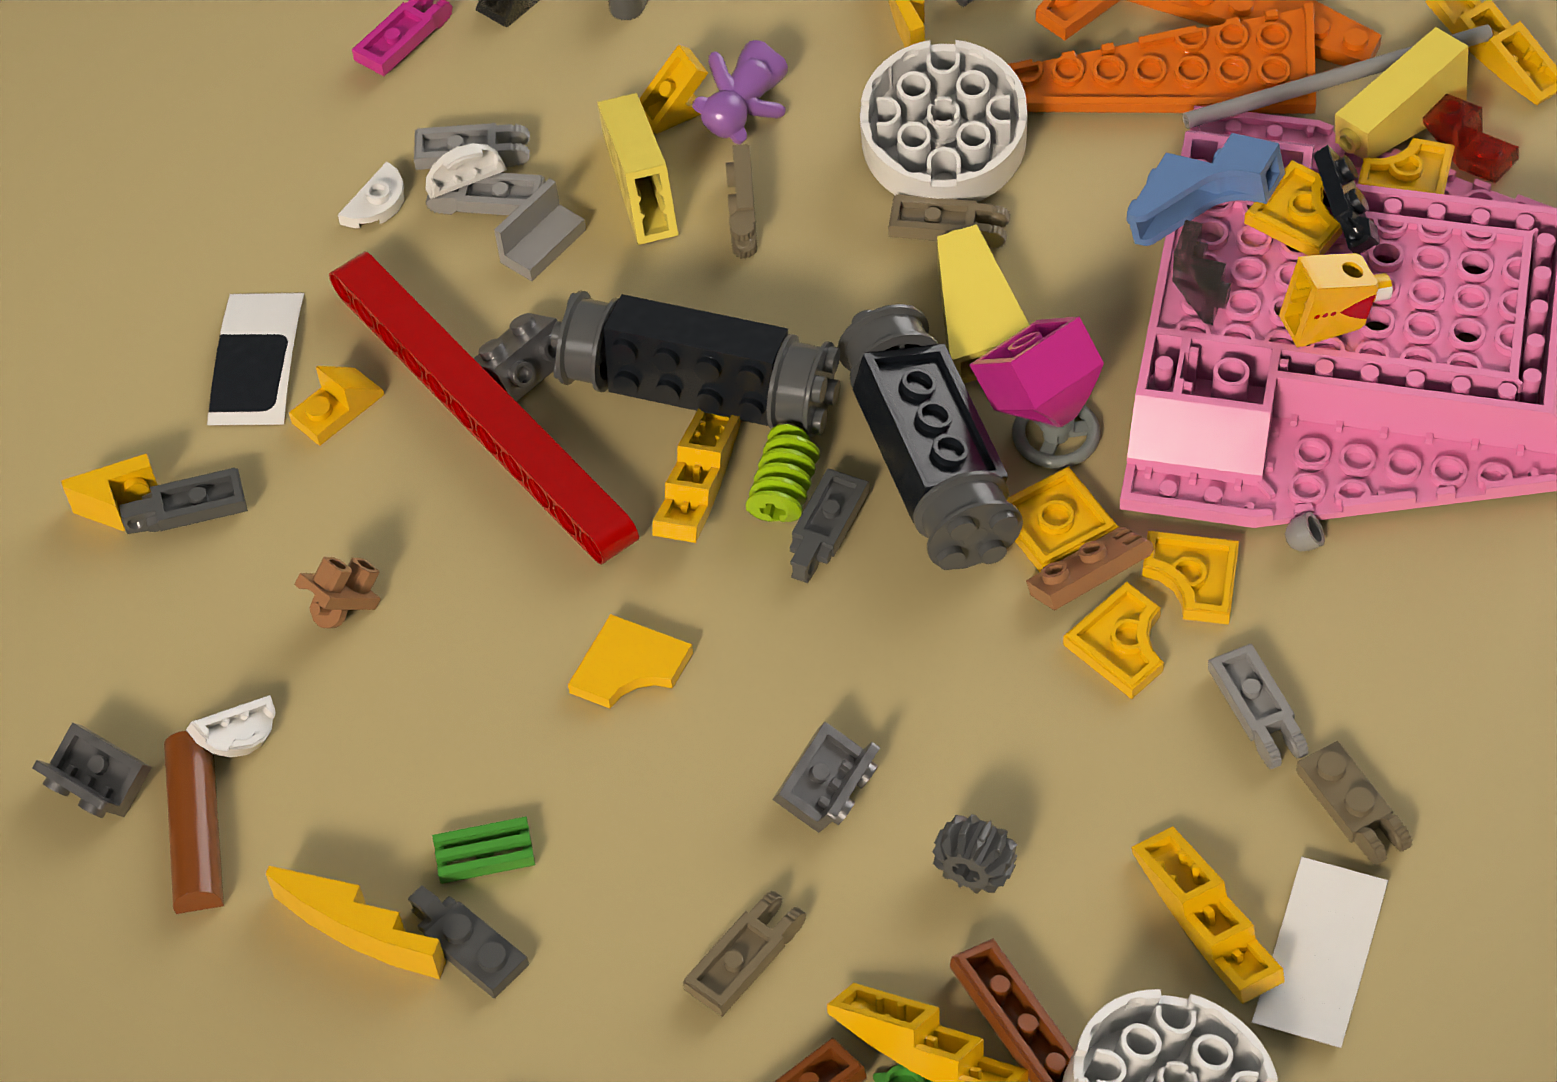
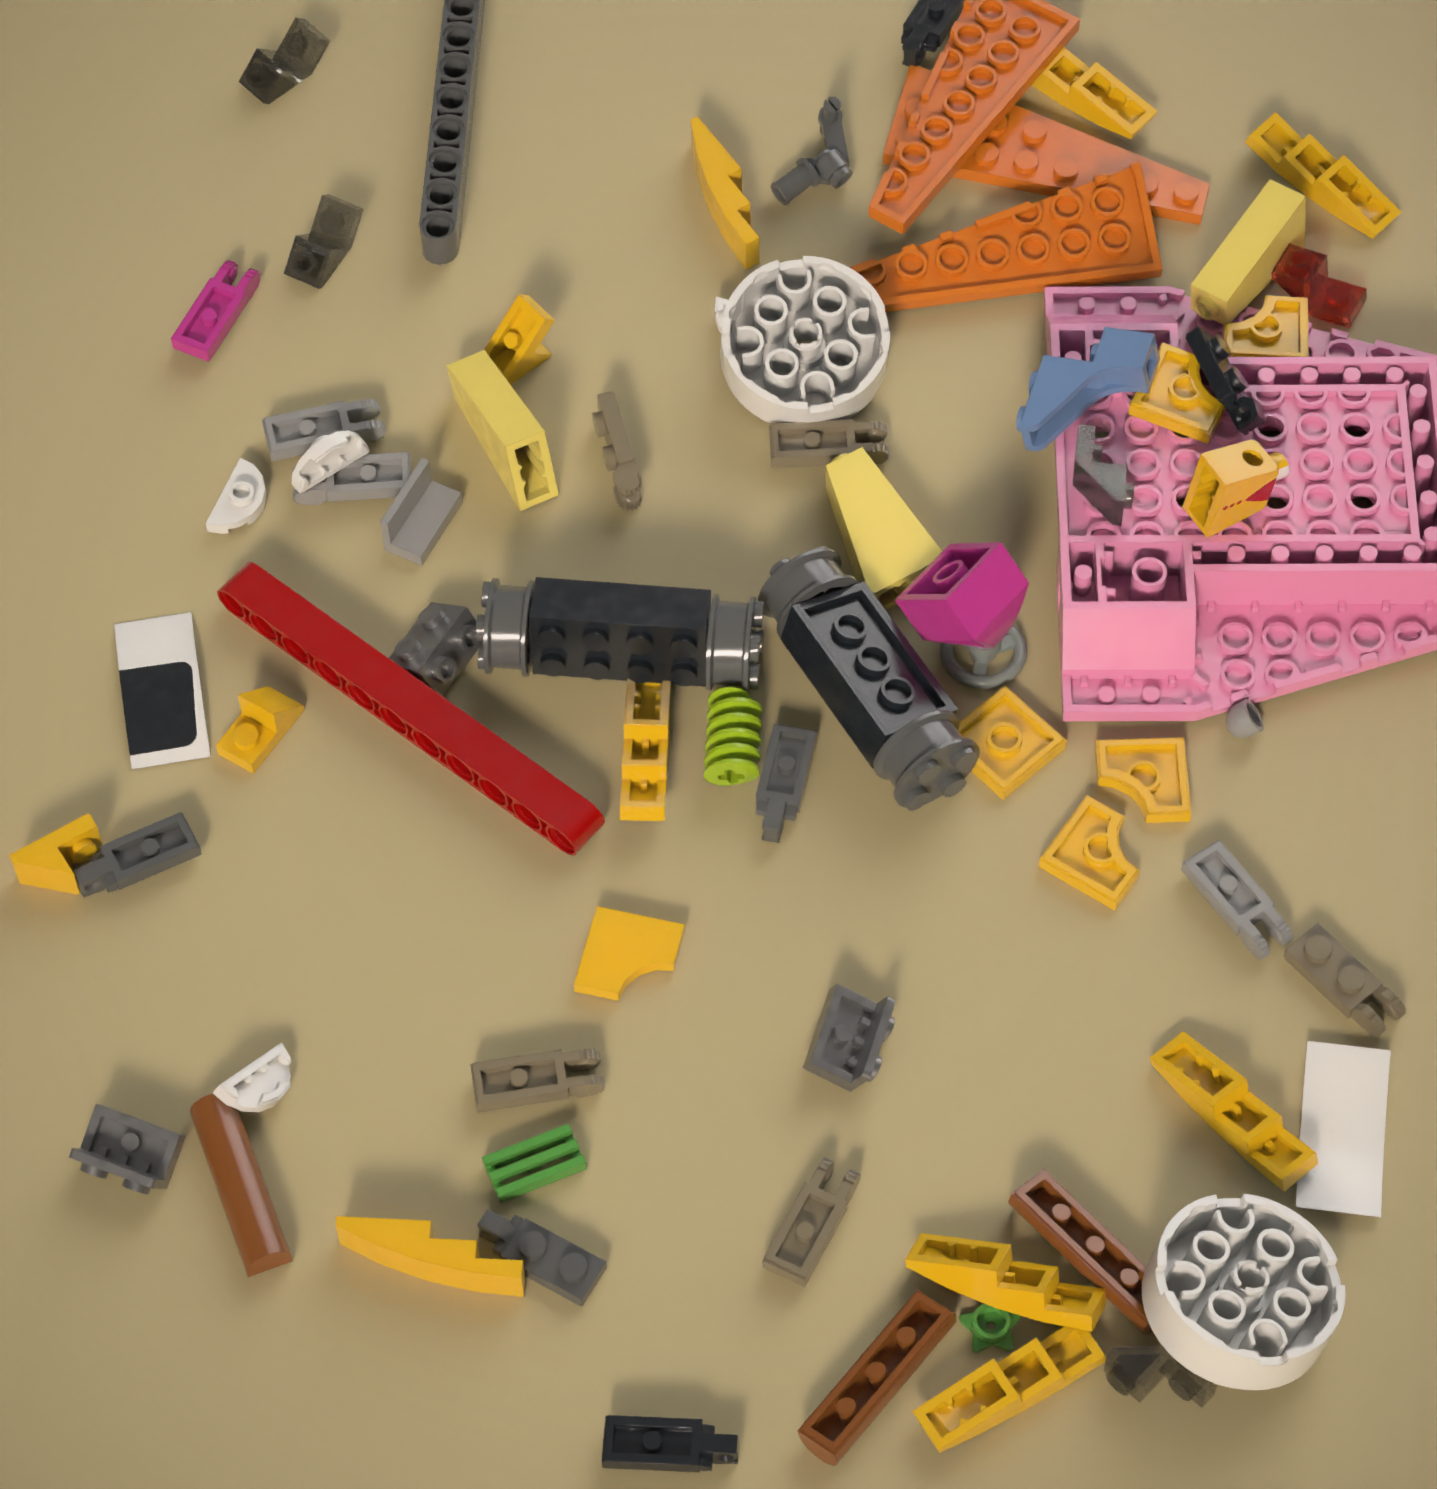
camera: 15 degrees left, 5 degrees up
(339, 589) = (324, 925): medium nougat hips -> none
(505, 768) = (534, 1078): none -> dark tan hinge
(755, 73) = (598, 309): medium lavender piece -> none
(975, 853) = (1009, 1090): dark grey gear -> none
(1088, 567) = (1048, 786): medium nougat hinge -> none
(1314, 83) = (1167, 243): light grey piece -> none

